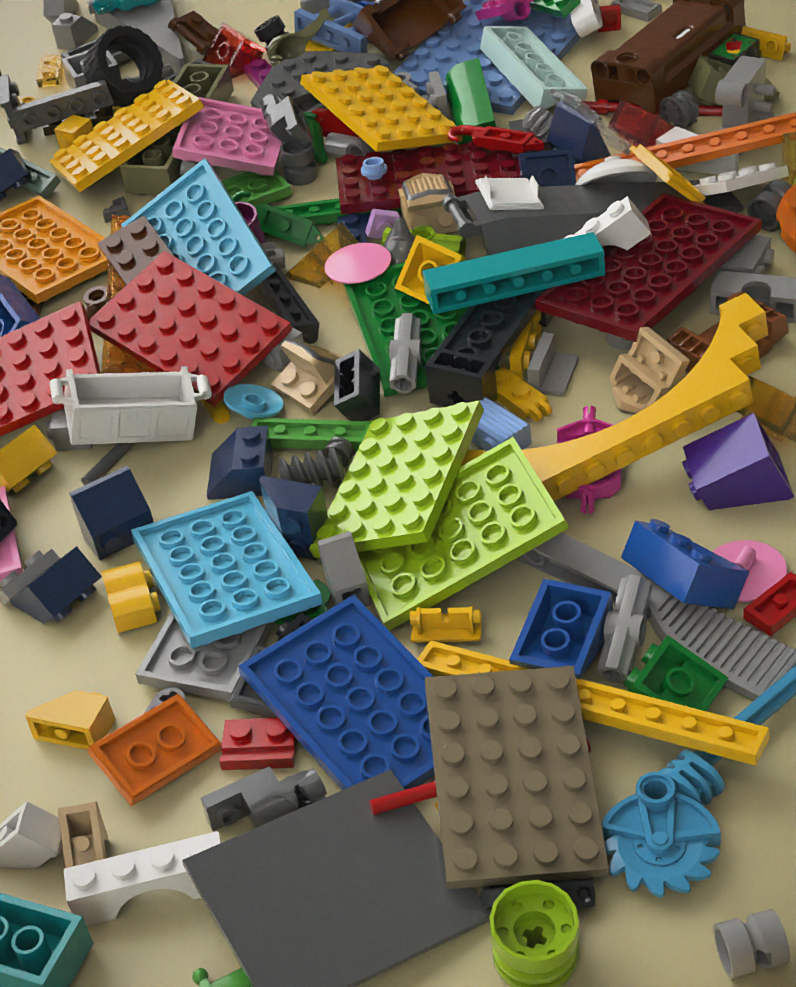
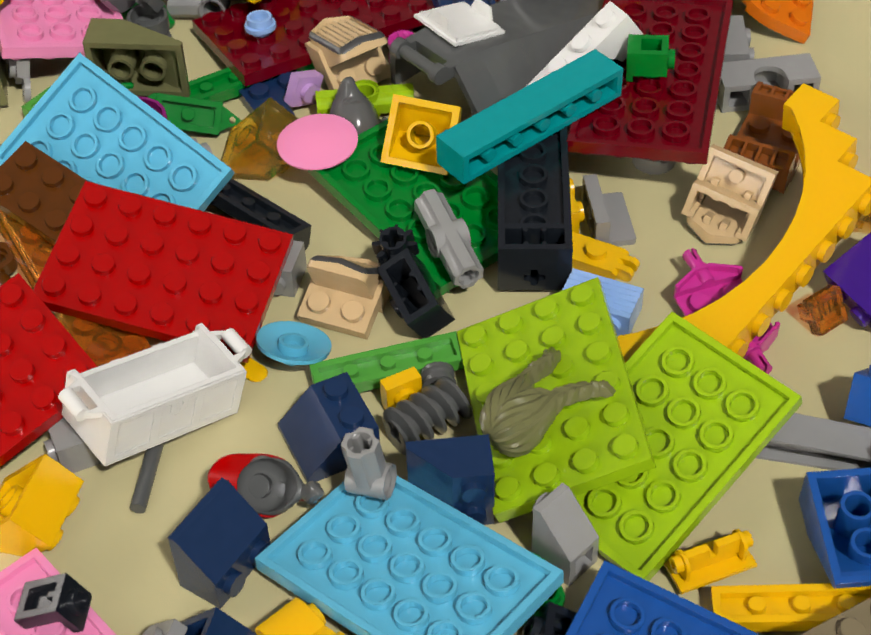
camera: 30 degrees left, 5 degrees up
(166, 484) = (265, 482): none -> dark grey hair
(231, 487) = (366, 467): none -> light grey piece
(262, 173) = (137, 56): none -> olive slope
(301, 445) = (399, 387): none -> yellow plate
(353, 474) = (520, 414): none -> olive hair
(364, 343) = (392, 242): none -> black gear
(640, 248) = (648, 56): none -> green brick
(669, 478) = (823, 310): none -> clear orange tile

